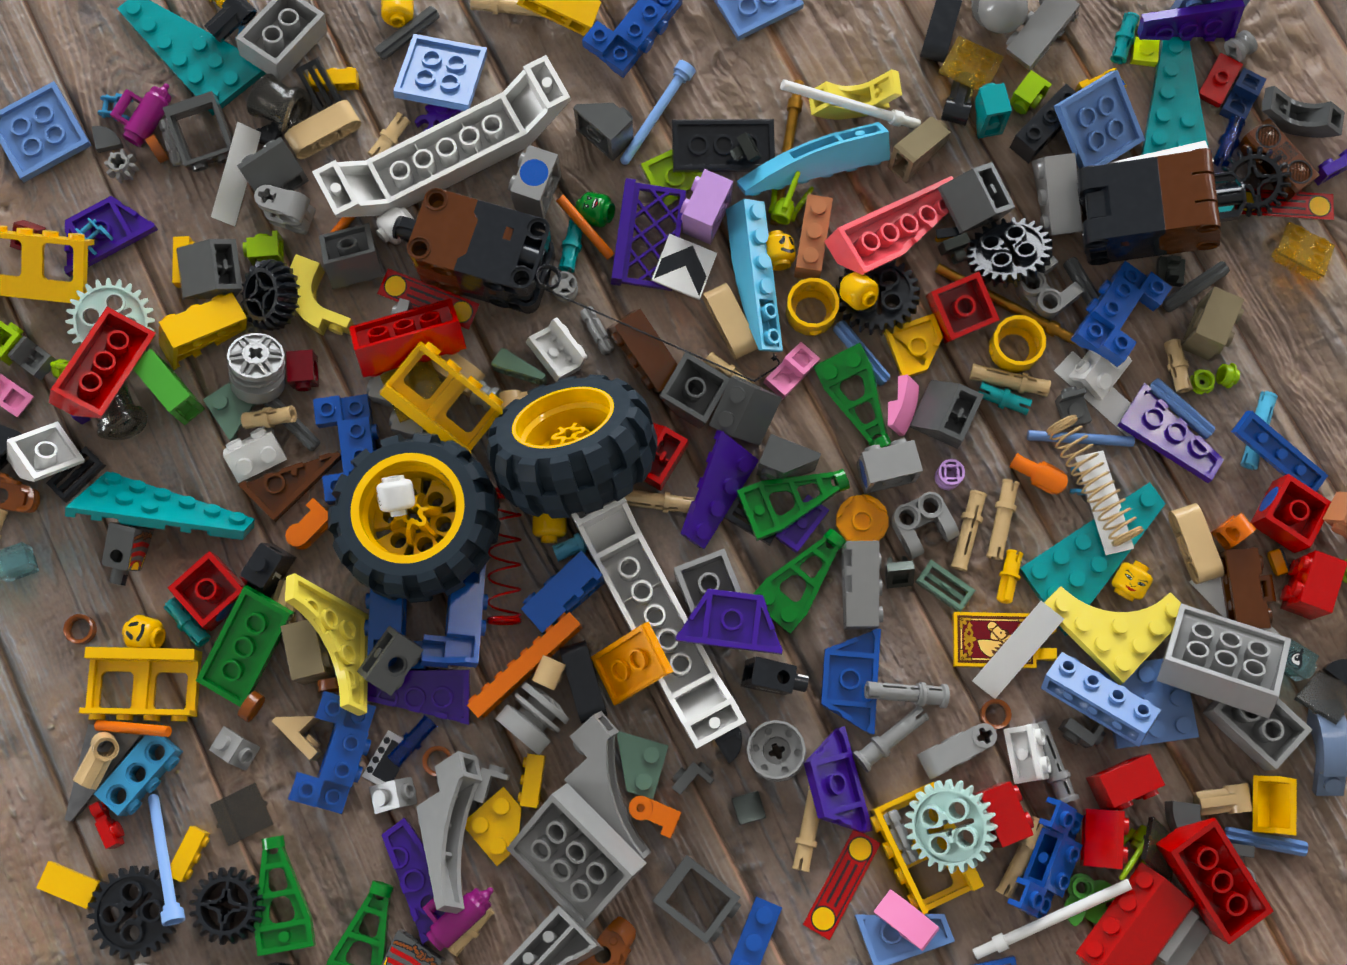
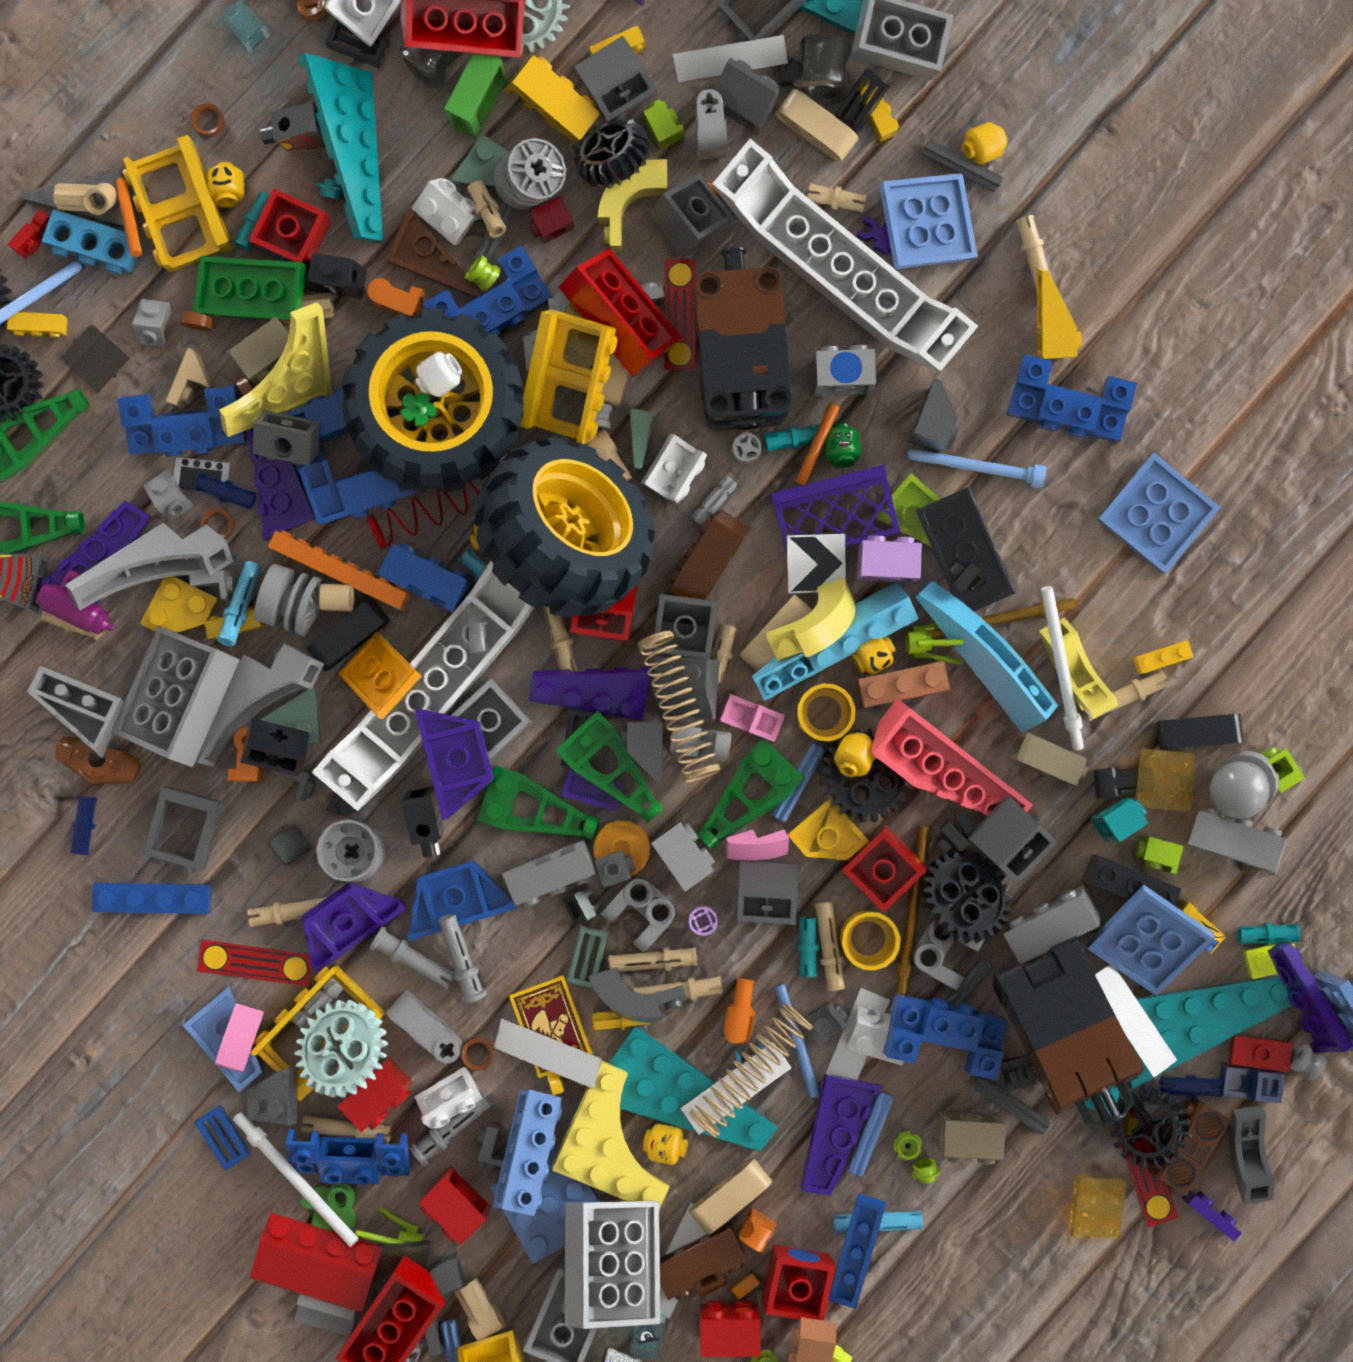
camera: 70 degrees right, 10 degrees up
(190, 543) = (330, 188): none -> teal plate
(322, 441) = (483, 273): none -> lime wheel
(386, 222) = (744, 238): white head -> none
(417, 526) = (418, 409): none -> green plant
(525, 772) = (235, 614): none -> medium azure pin
(550, 287) = (720, 435): black piece -> none
(631, 561) = (477, 634): none -> light grey pin
(658, 780) = (275, 747): none -> black brick
(741, 280) = (818, 628): none -> light yellow arch
(799, 414) = (719, 741): none -> light grey piece
(827, 416) = (656, 640): none -> tan piece
(870, 32) = (1163, 657): none -> yellow piece
(878, 526) = (614, 868): none -> dark grey bracket
(889, 60) = (1137, 690): none -> tan pin
(972, 909) = (274, 1098): none -> flat silver wing
(998, 563) = (631, 1004): none -> dark grey arch
(1104, 838) = (390, 1202): red slope -> none
(1178, 366) = (914, 1115): tan pin -> none

